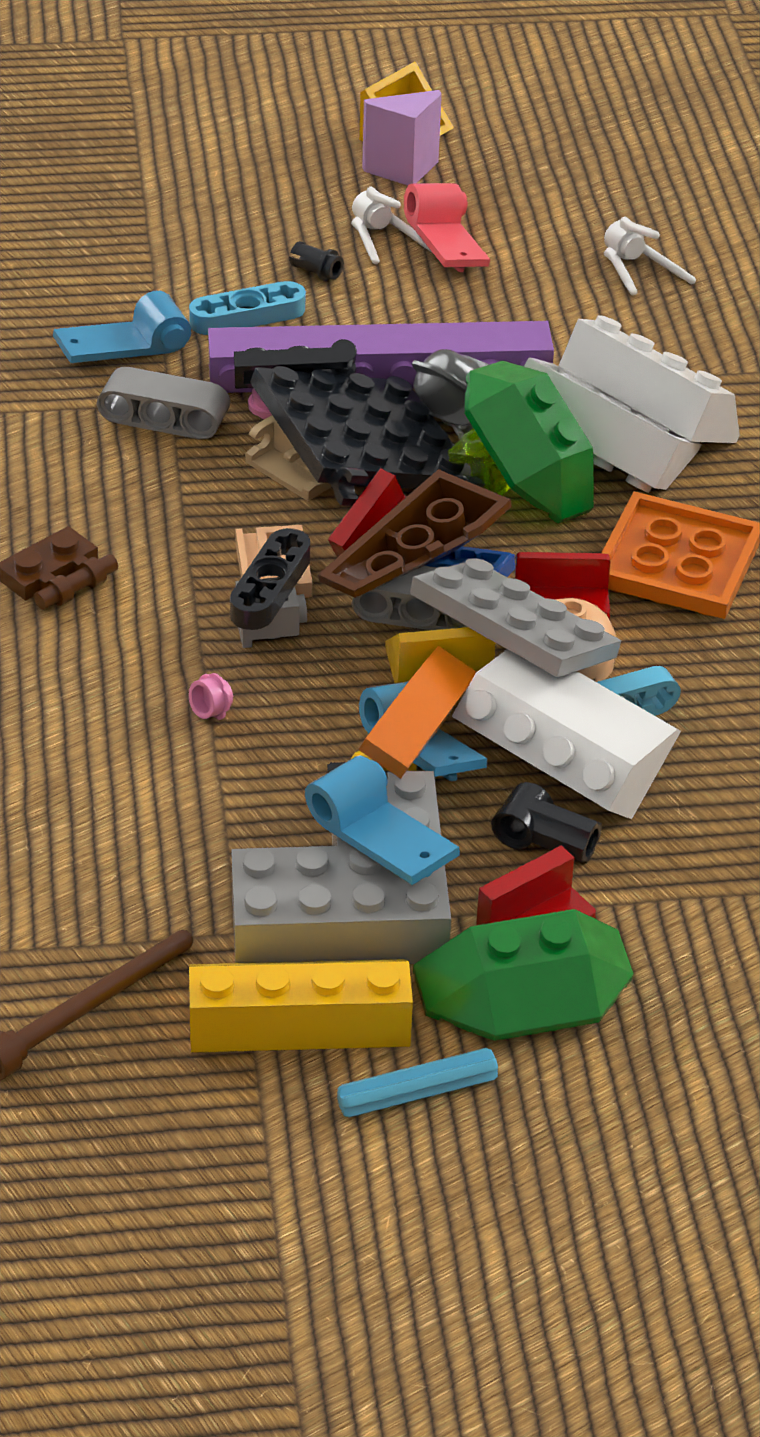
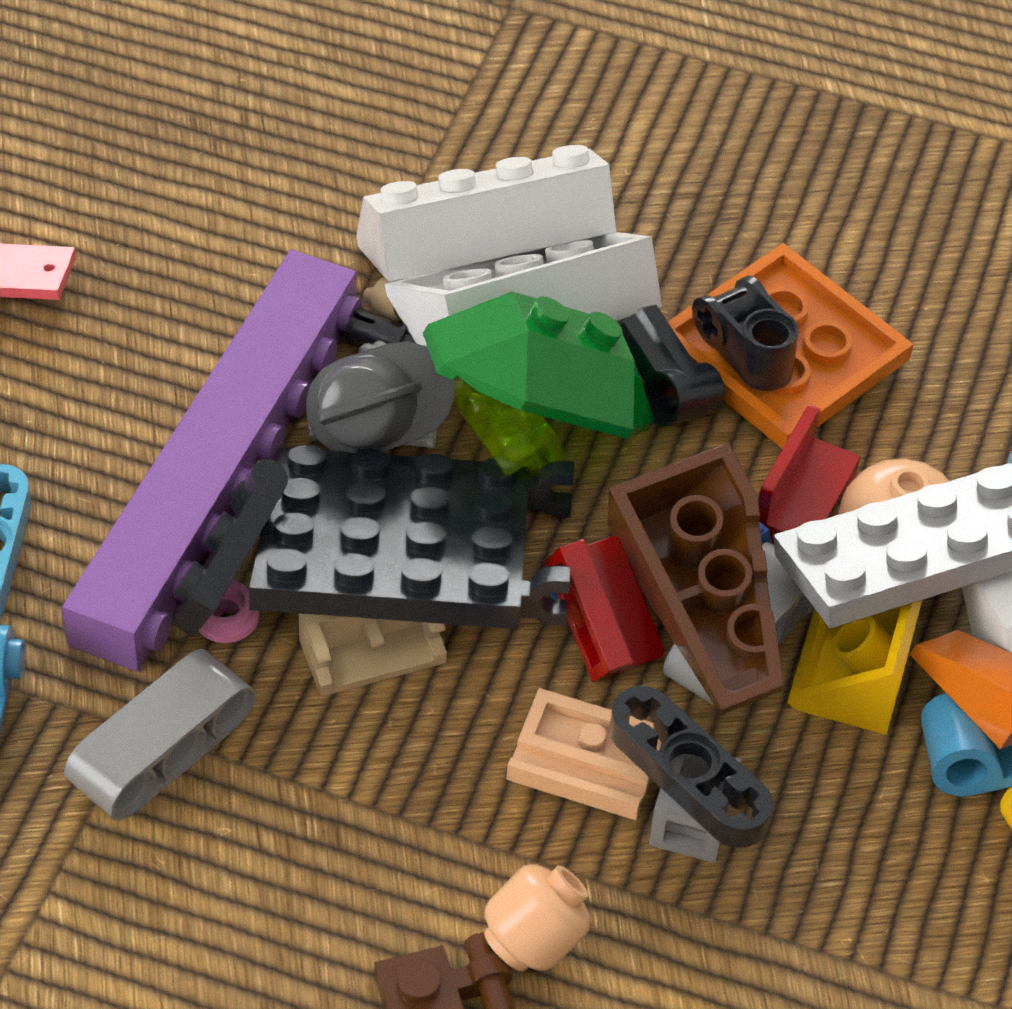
camera: 65 degrees left, 10 degrees up
(133, 567) = (537, 917): none -> light nougat head
(210, 696) = (829, 939): bright pink plate -> none
(596, 508) = (672, 381): none -> black piece
(627, 242) = (137, 101): white plant -> none
(652, 519) = (749, 333): none -> black piece

